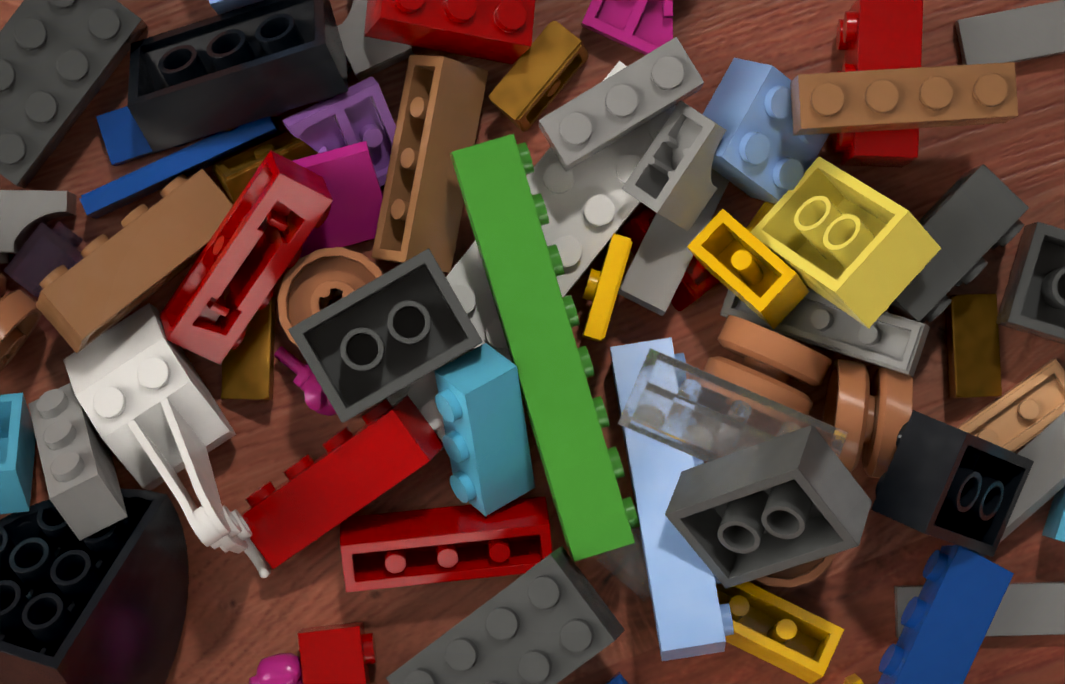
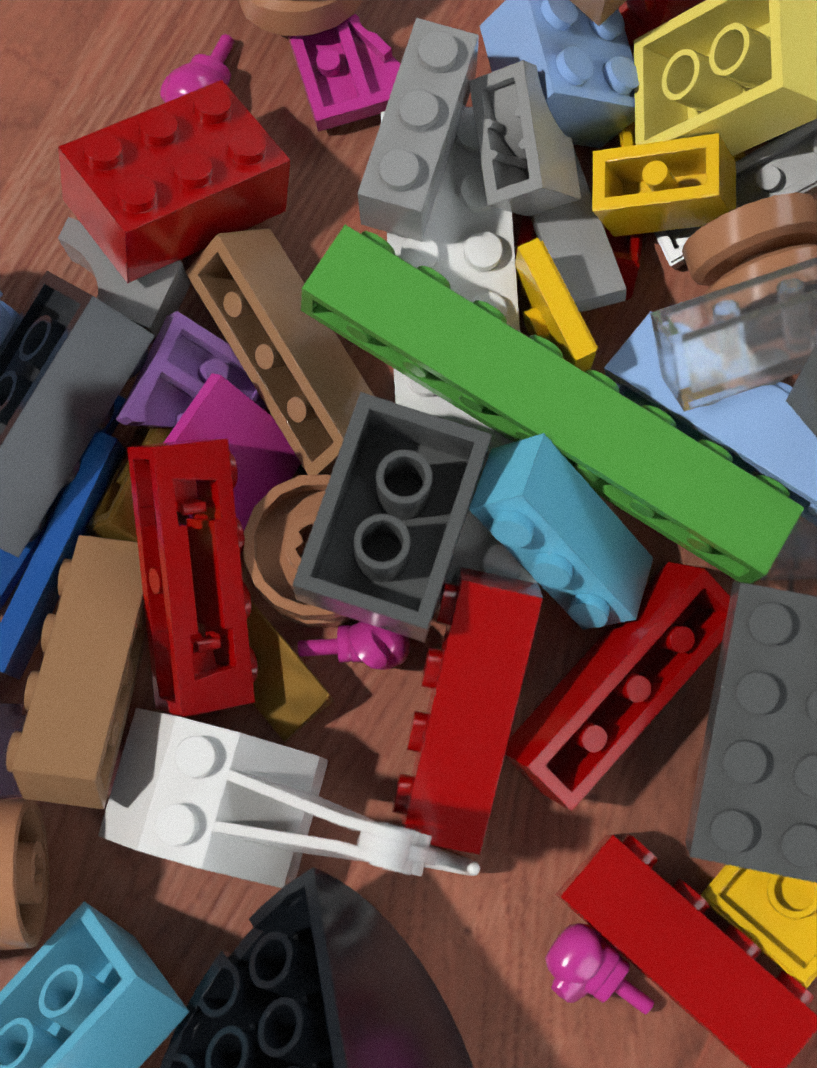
camera: 40 degrees left, 10 degrees down
(76, 463) = (196, 918): light grey brick -> none
(539, 75) = (317, 190): pearl gold slope -> none

